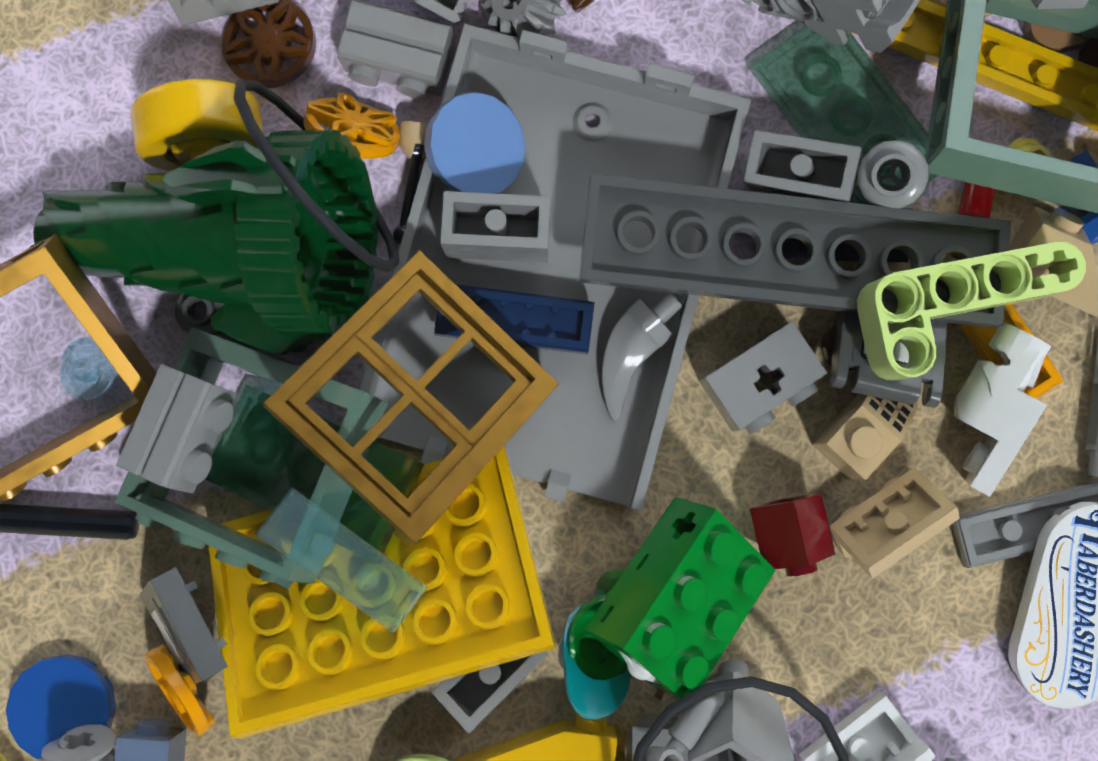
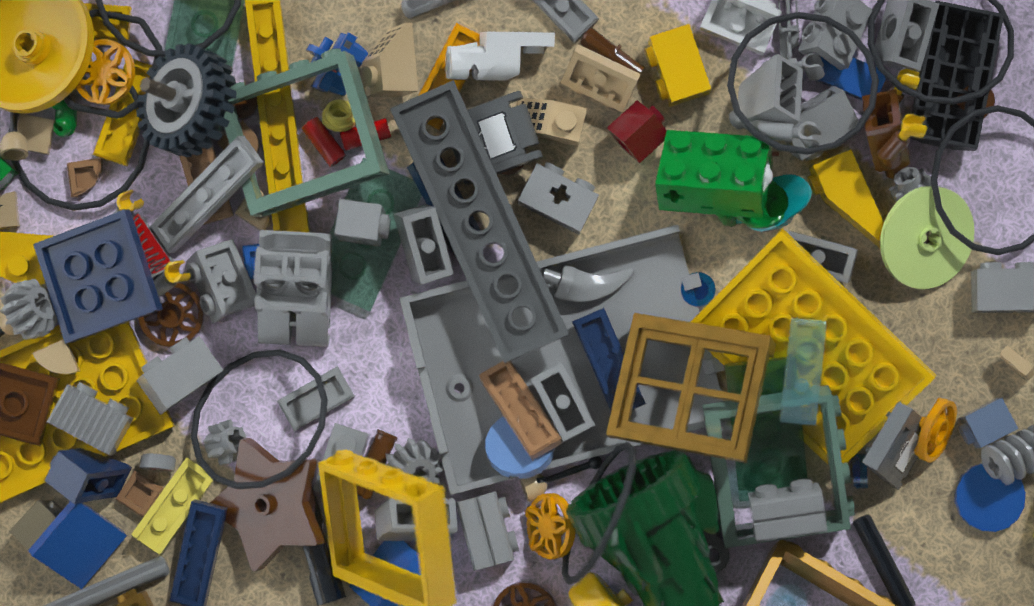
camera: 125 degrees left, 0 degrees up
(188, 560) = (860, 477): none -> tile
(517, 168) = (520, 409): none -> medium nougat plate
(533, 488) = (702, 295): none -> tile
(850, 636) = (678, 65): none -> yellow brick
(882, 96) = (362, 223): none -> light grey brick
(906, 189) = (400, 190): light grey head -> none
(938, 548) = (599, 44): none -> reddish brown axle
(969, 292) = (455, 110): yellowish green beam -> none
(1005, 126) = (323, 141): none -> red axle

